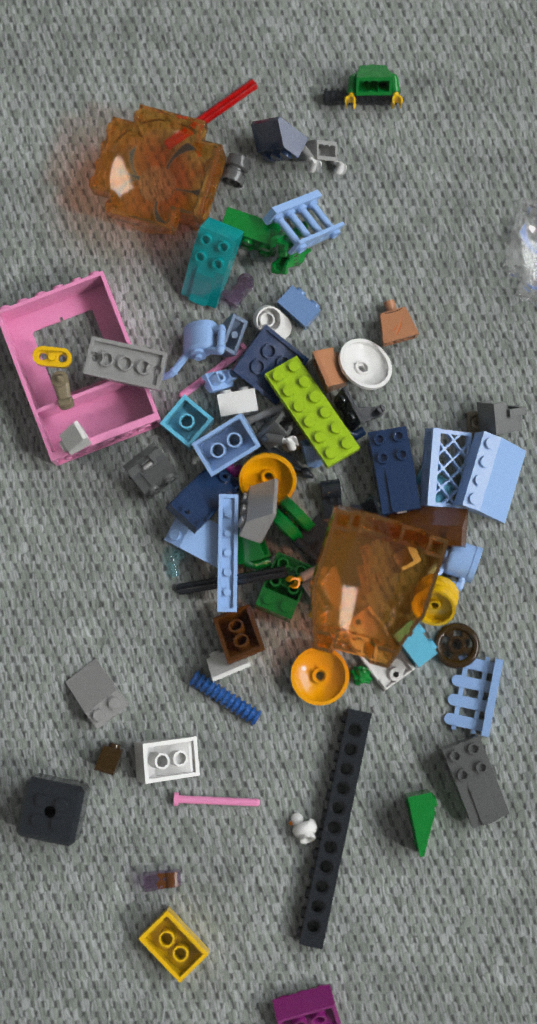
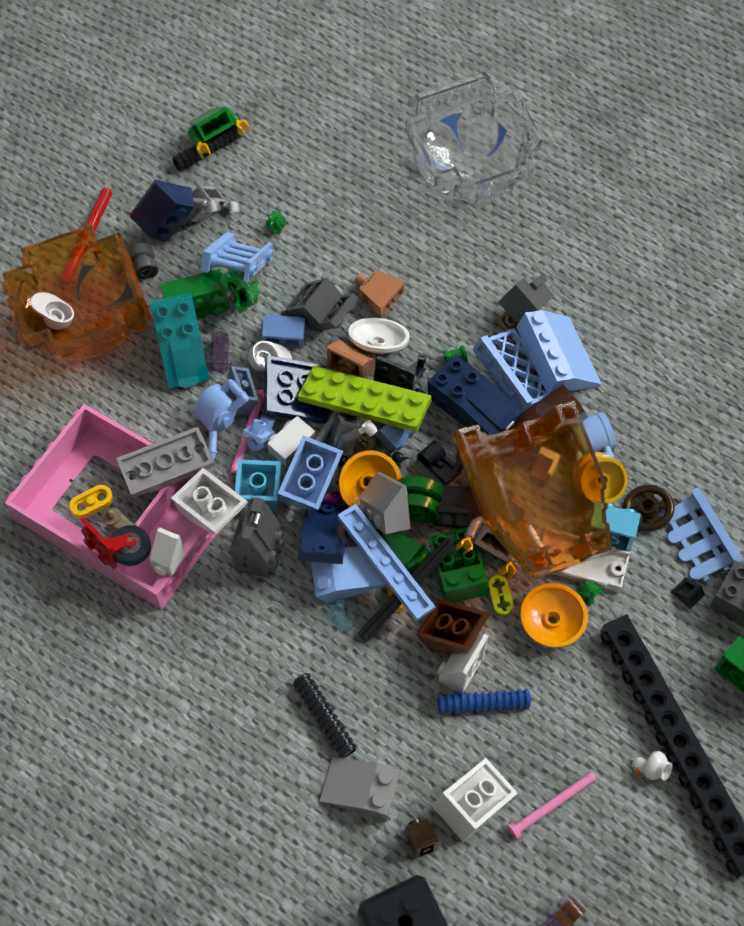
camera: 40 degrees left, 20 degrees down
(51, 413) = (127, 546): none -> plate
(110, 626) = (324, 715): none -> black piece
(129, 423) = (208, 502): none -> white slope
(137, 168) = (55, 312): none -> white cap
(301, 633) = (505, 594): none -> lime beam
(341, 307) = (321, 305): none -> dark grey bracket
(363, 206) = (276, 222): none -> green plant
(411, 421) = (461, 353): none -> green bush
(432, 727) = (688, 592): none -> black slope

